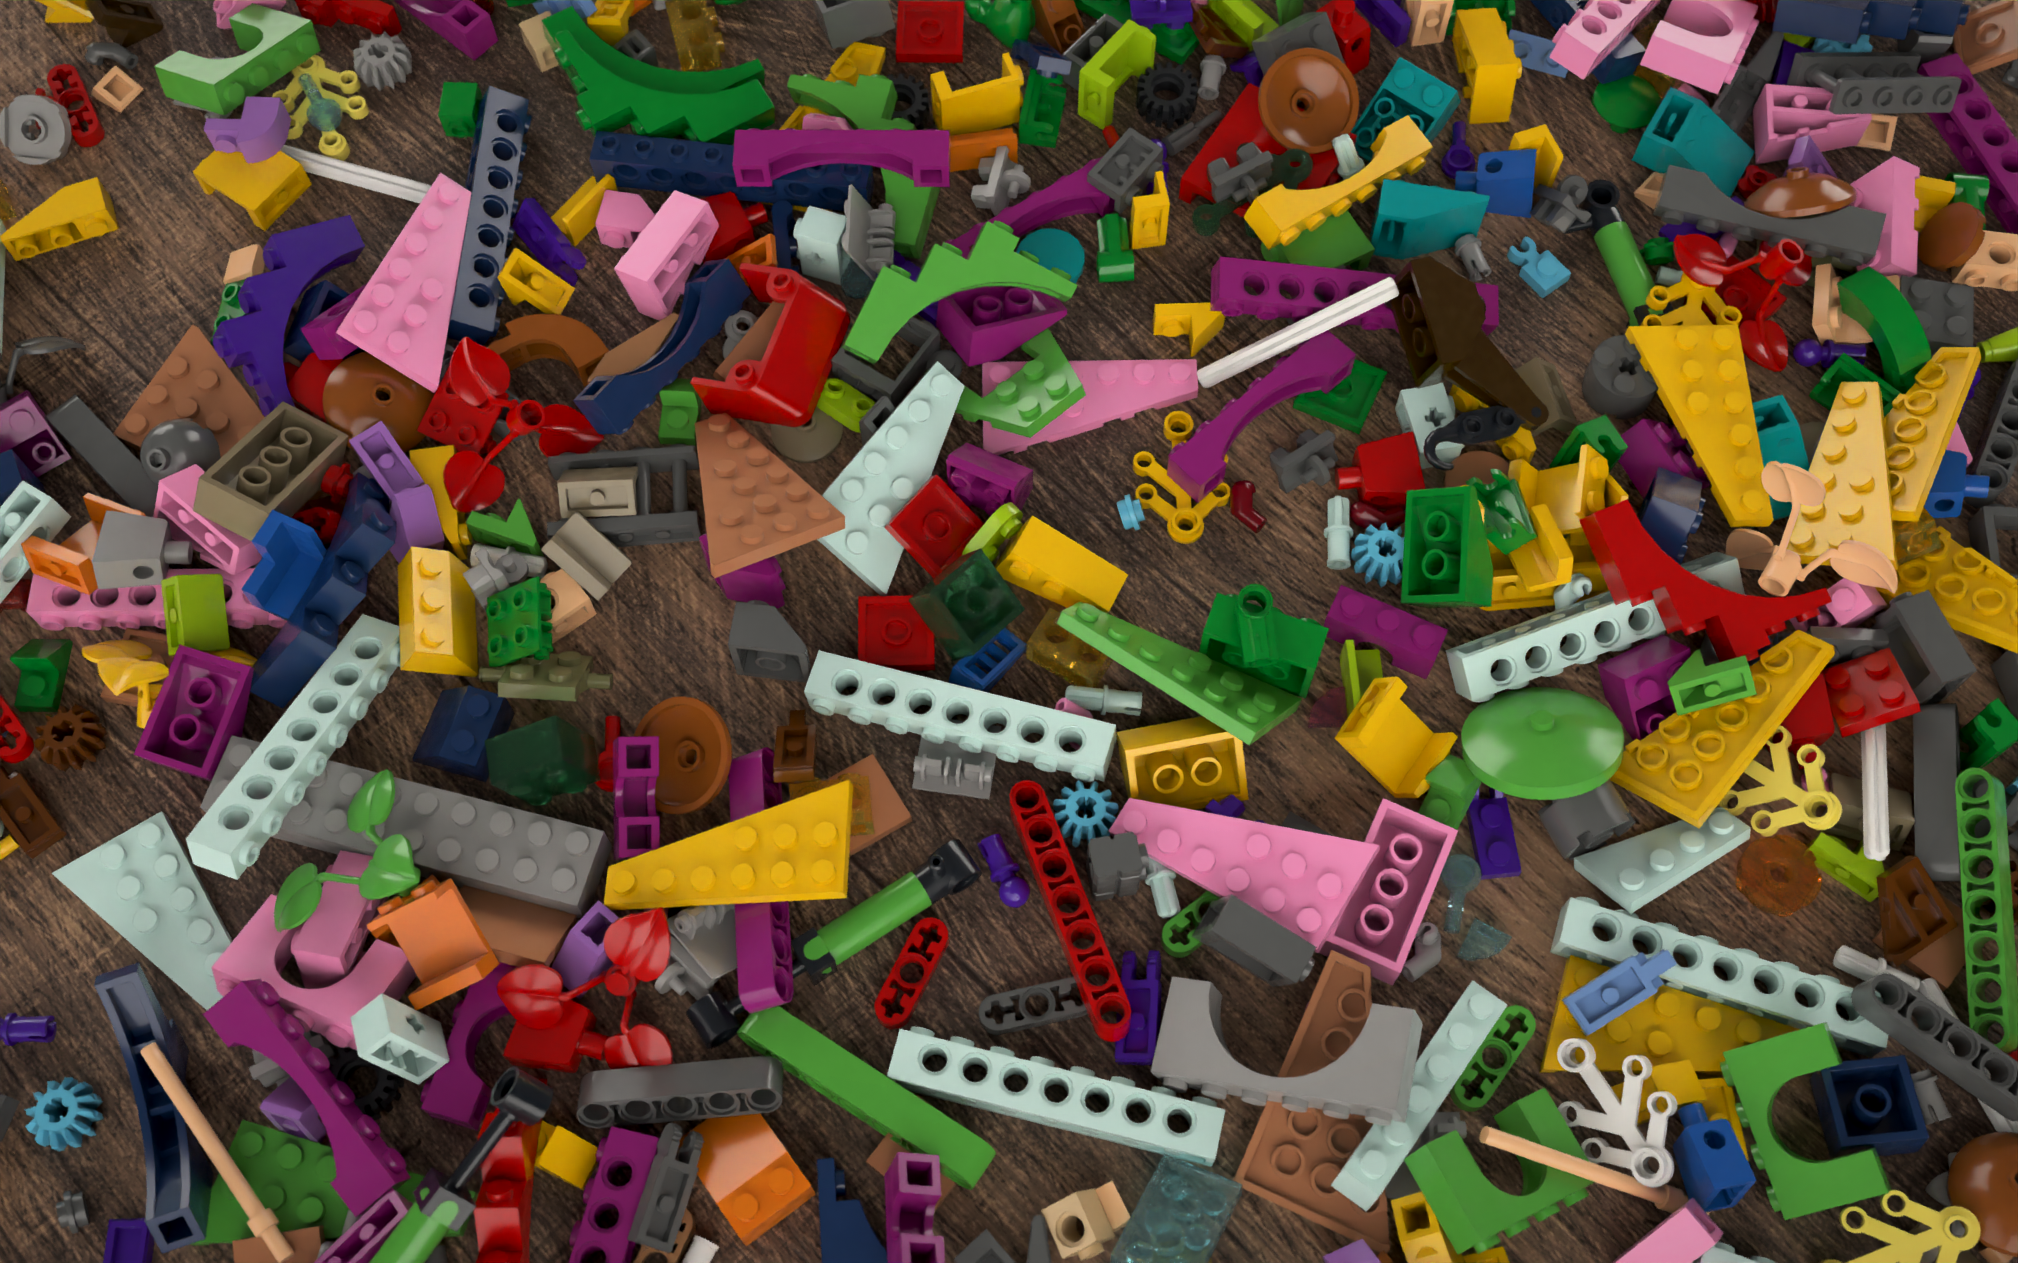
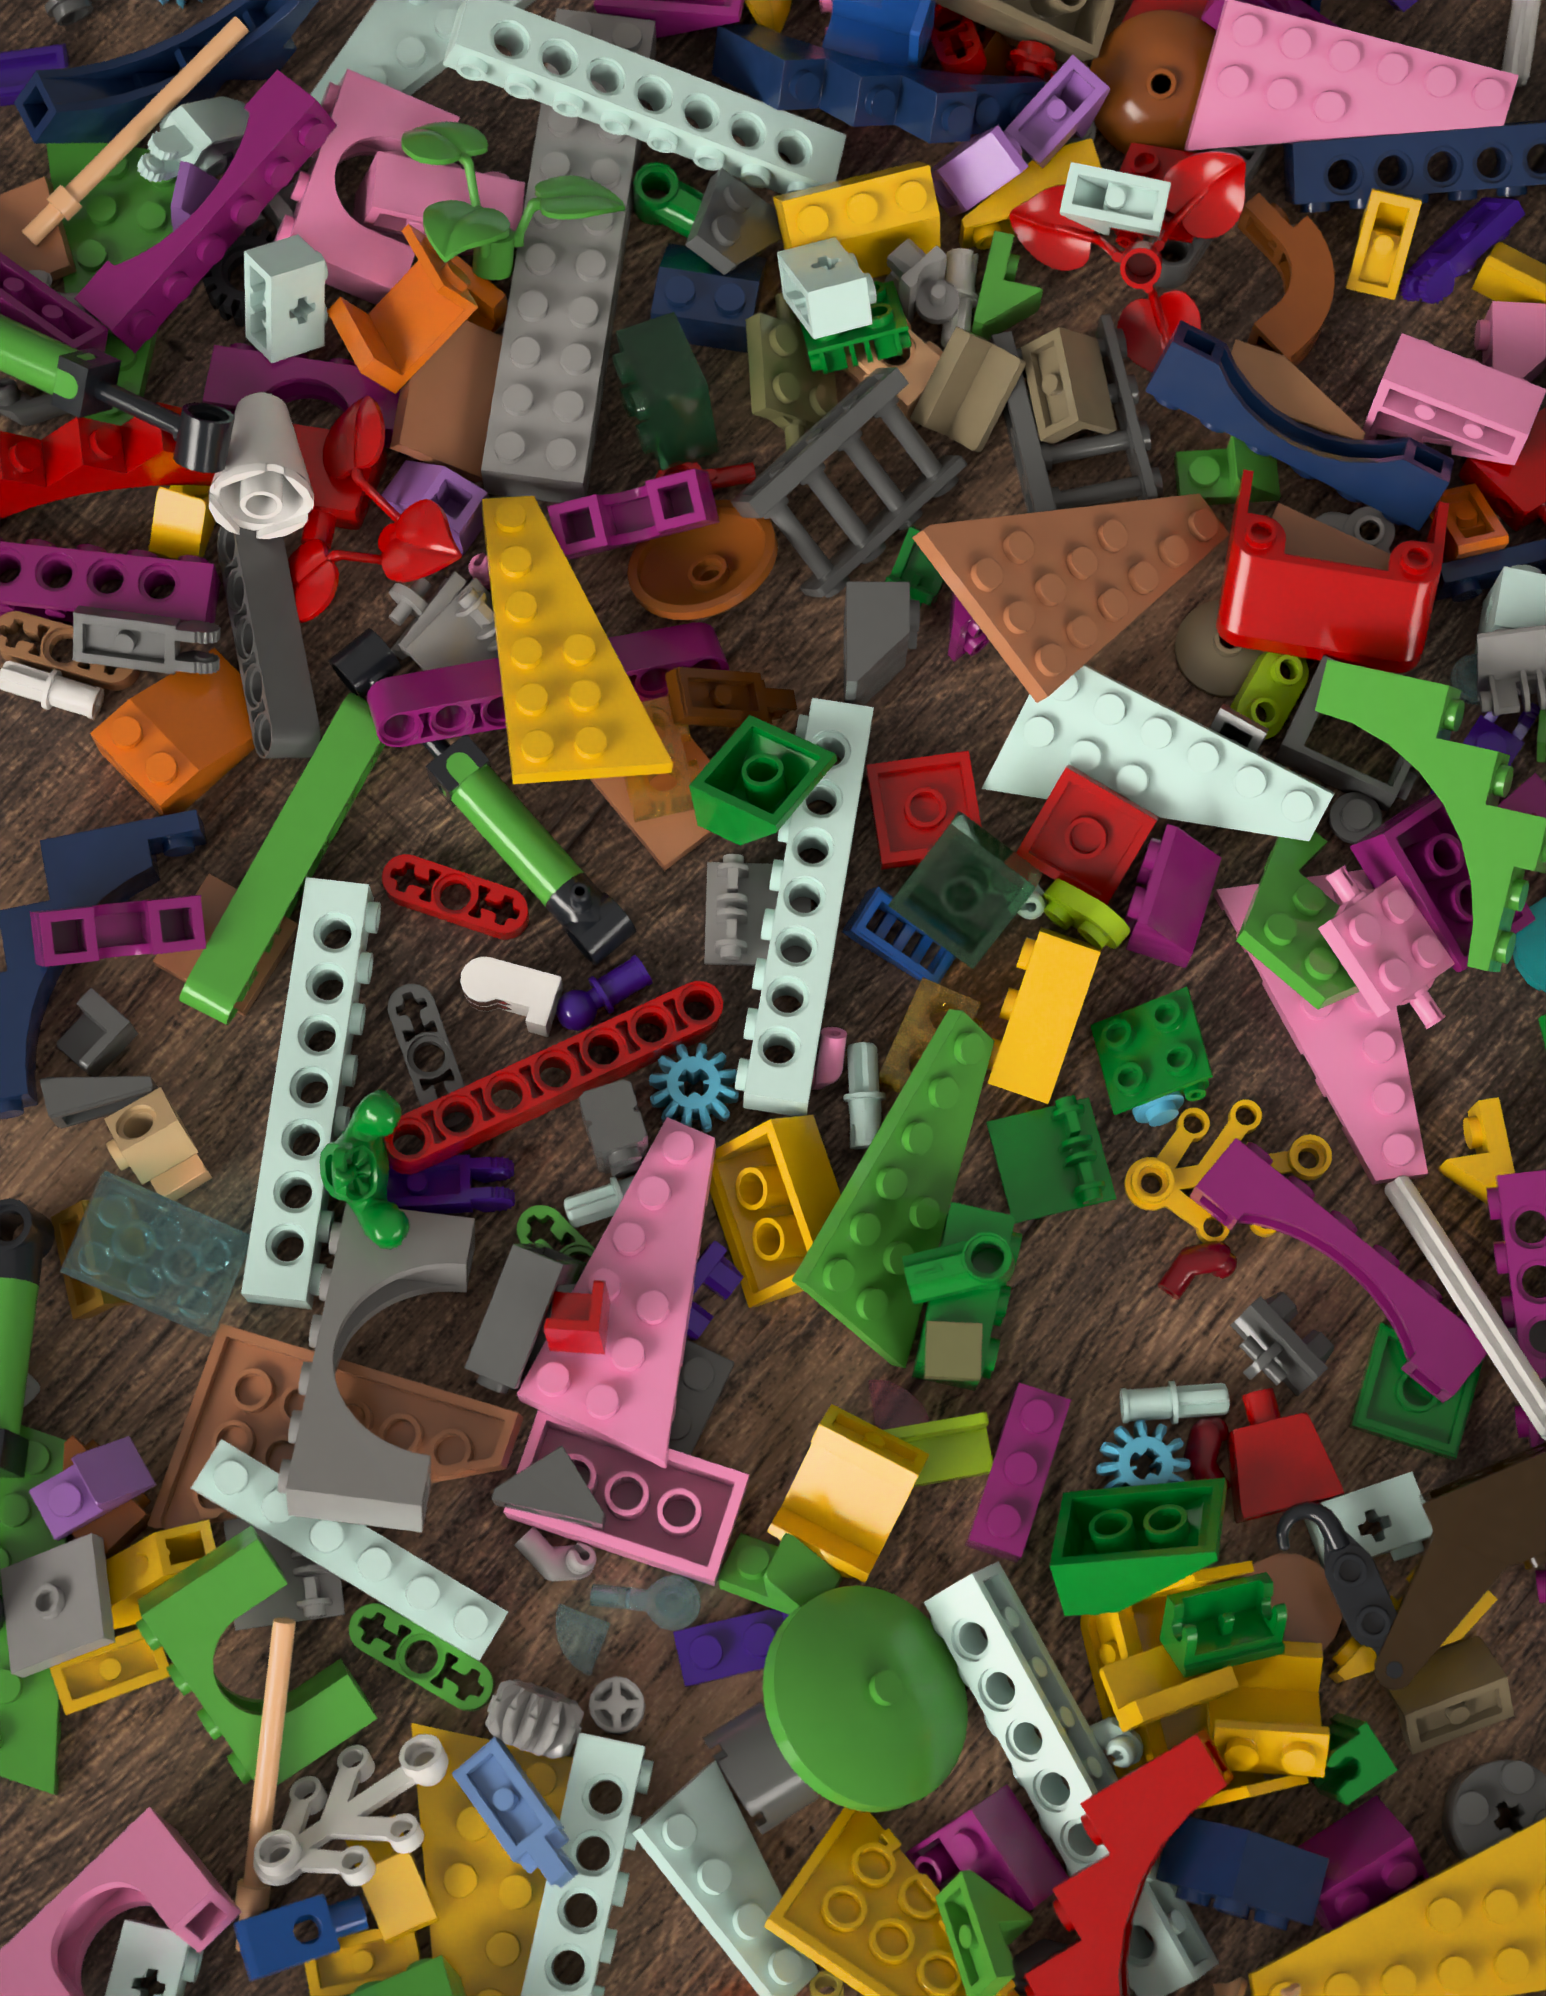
camera: 80 degrees right, 10 degrees up
(235, 1104) = (196, 134): none -> light aqua hinge
(387, 741) = (674, 210): none -> green piece
(415, 700) = (732, 224): none -> dark grey wing
(469, 429) = (1115, 200): none -> light aqua slope
(491, 630) = (826, 287): none -> light aqua brick
(557, 1058) = (264, 472): none -> white cone
(620, 666) = (805, 465): none -> dark grey fence
(710, 611) = (917, 569): none -> green bracket
(869, 728) = (757, 781): none -> green slope
(992, 934) = (513, 988): none -> white leg
(1047, 347) = (1386, 946): none -> bright pink plate
(1097, 506) = (1153, 1052): none -> green hinge
(1133, 1053) = (358, 1169): none -> green head
(1162, 586) = (1051, 1159): none -> green hinge
(1270, 890) = (579, 1321): none -> red panel
(1312, 641) = (953, 1351): none -> olive tile
(1391, 929) = (553, 1491): none -> dark grey slope
(1540, 913) = (613, 1698): none -> light grey wheel
(1547, 973) = (534, 1718): none -> light grey gear

